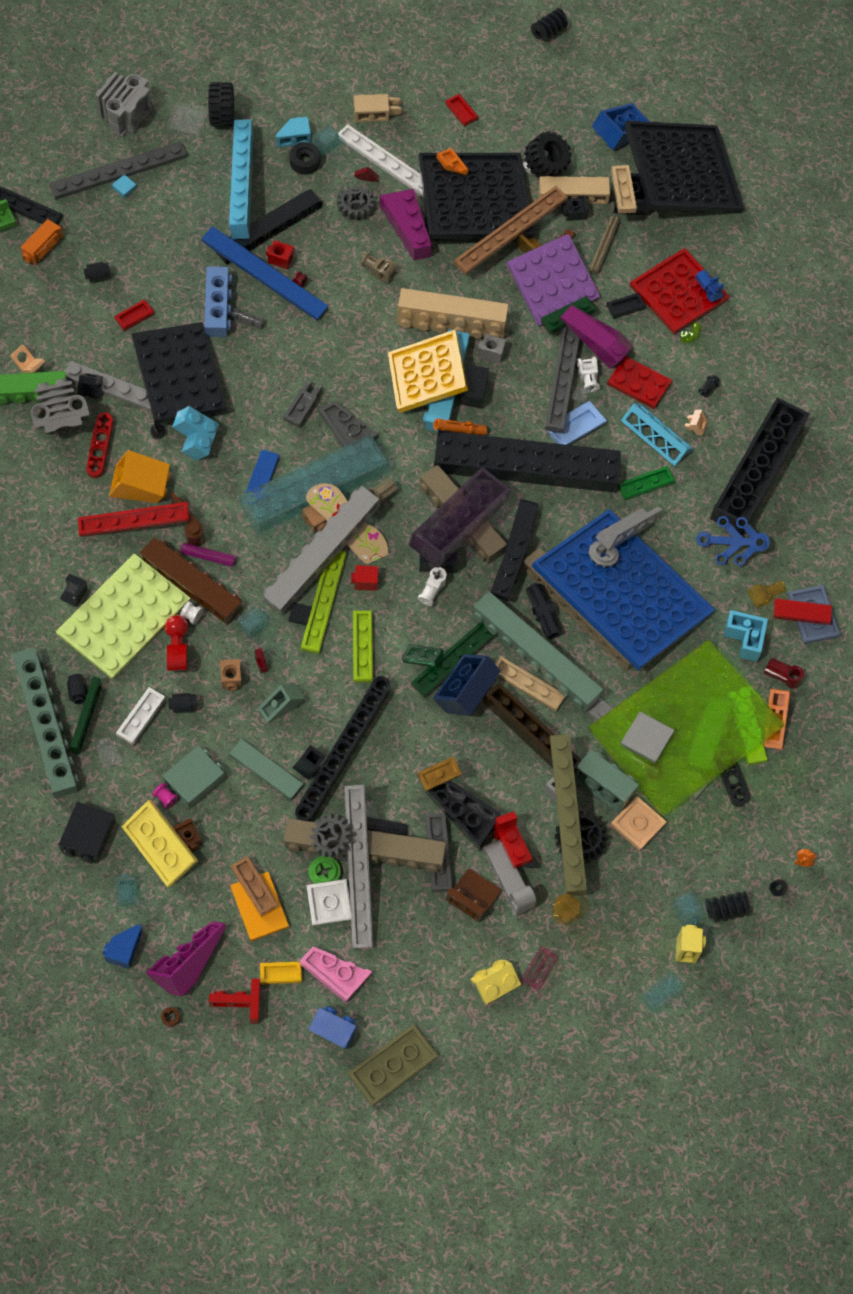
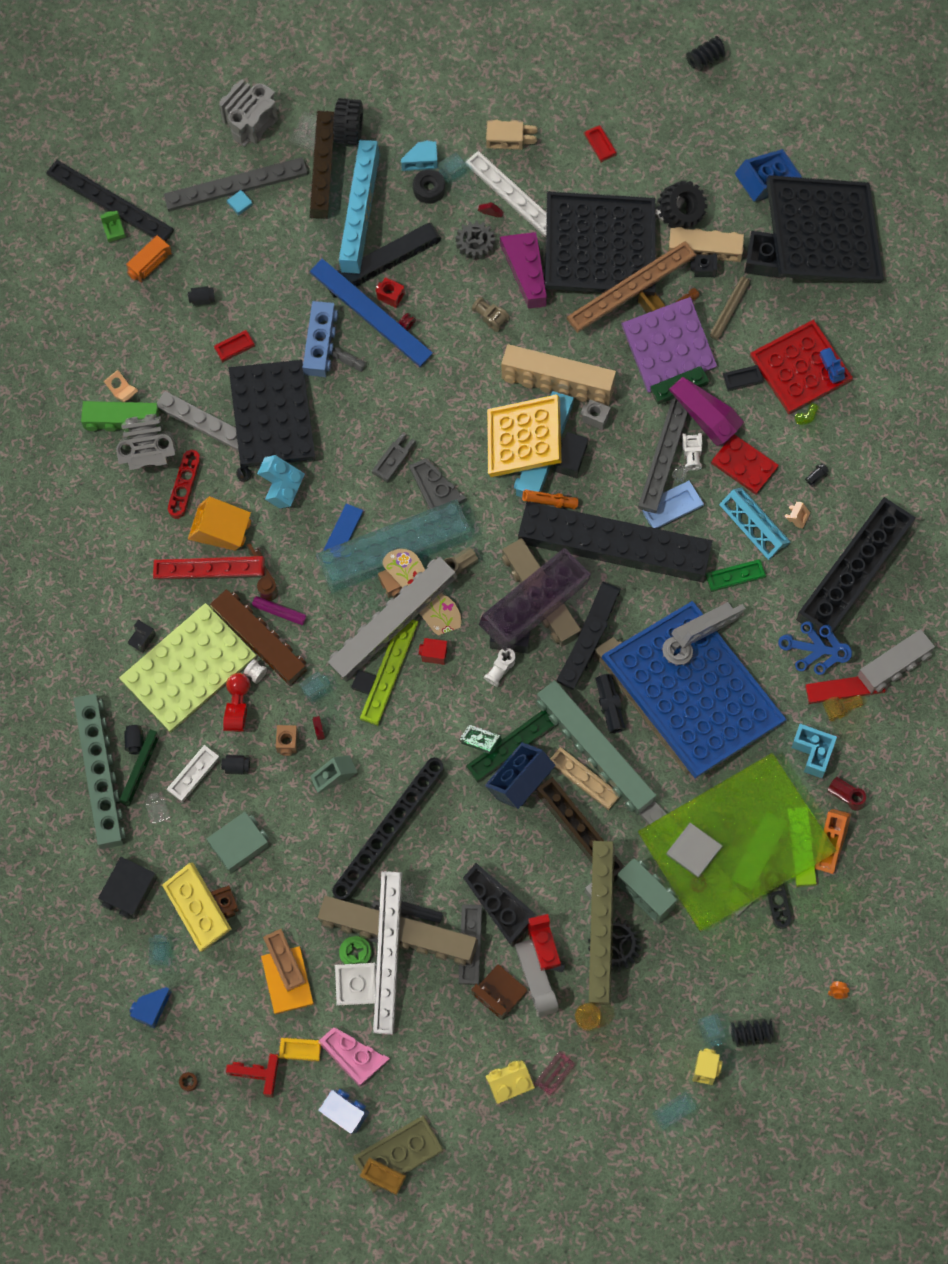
camera: 15 degrees right, 5 degrees up
(90, 385) = (180, 419): black panel -> none
(165, 795) = (208, 858): dark pink bush -> none
(183, 968) = (206, 1034): magenta wedge -> none
(200, 145) = (322, 165): none -> dark brown brick
(266, 769) = (310, 841): sand green tile -> none
(309, 762) = (352, 839): black brick -> none
(332, 825) = (370, 913): dark grey gear -> none
(362, 647) = (422, 722): lime tile -> none
(381, 1088) = (382, 1176): none -> pearl gold tile
(439, 774) = (479, 867): pearl gold panel -> none
(452, 162) = (579, 204): orange tile -> none
(623, 189) = (755, 251): tan plate -> none
(638, 823) = (674, 936): light nougat plate -> none
(766, 576) = (839, 688): none -> red tile
(776, 883) = (807, 1012): black hinge -> none
(802, 611) = (876, 730): red tile -> none
(810, 547) = (896, 661): none -> light grey brick
(812, 631) = (888, 733): sand blue tile -> none

